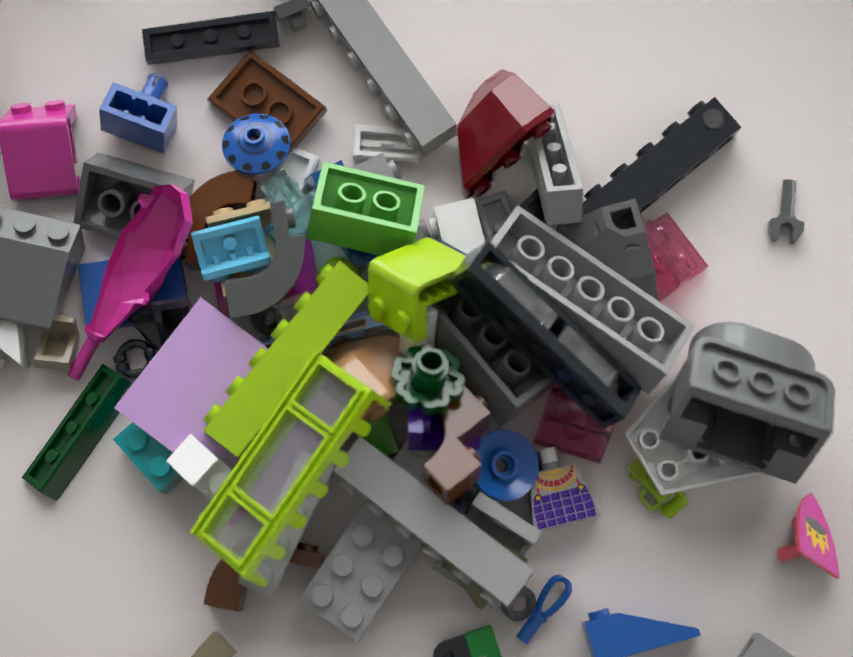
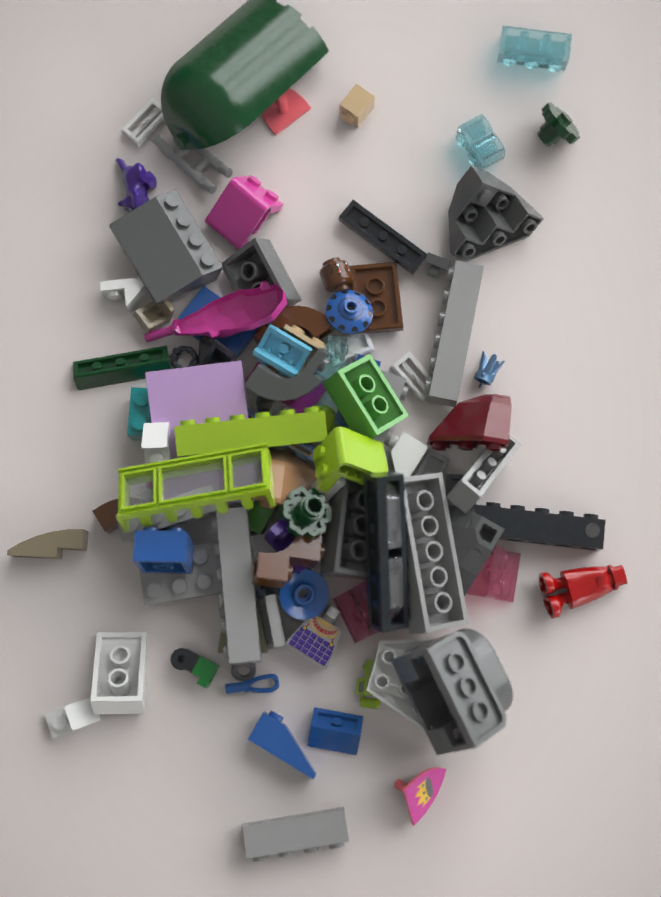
camera: 45 degrees right, 0 degrees up
(140, 115) = (307, 242): blue brick -> none
(204, 120) = (336, 275): none -> reddish brown head
(323, 565) = (163, 551): none -> blue brick
(457, 72) = (487, 372): none -> flat silver piece
(670, 567) = (335, 731): none -> blue panel
(757, 182) = (582, 586): none -> red piece
(786, 214) = (582, 617): dark grey bar -> none

